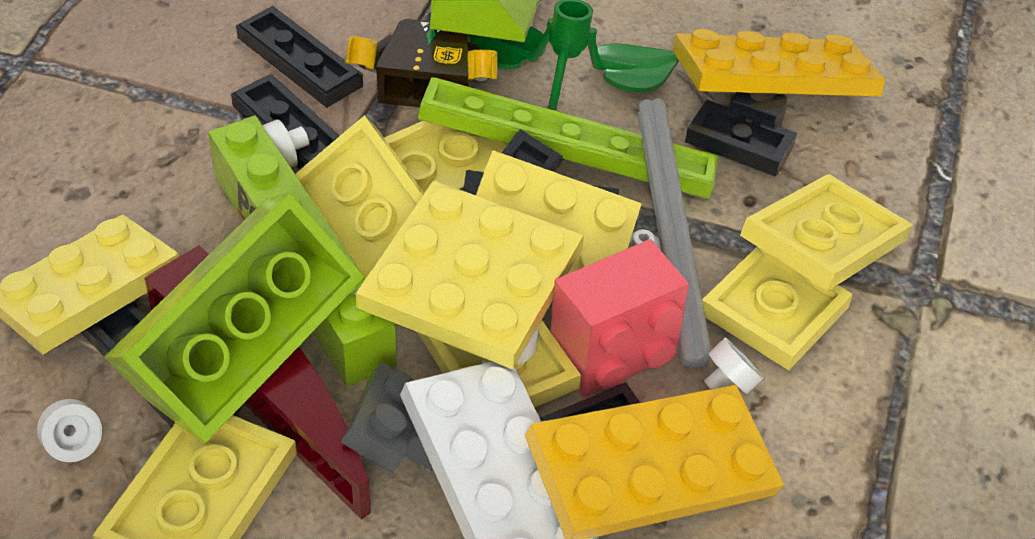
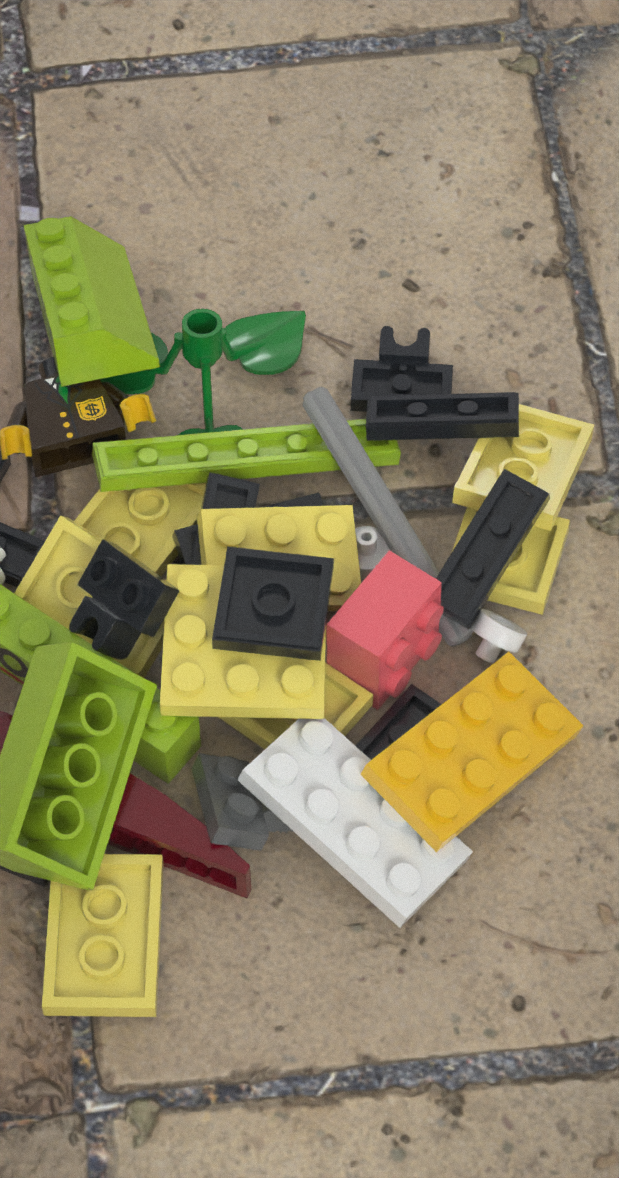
camera: 20 degrees left, 10 degrees up
(377, 204) = (124, 601): none -> black plate
(510, 242) = (273, 603): none -> black tile
(755, 280) = (489, 546): none -> black tile
(767, 165) = (442, 416): none -> black tile
(777, 64) = (403, 295): yellow plate -> none

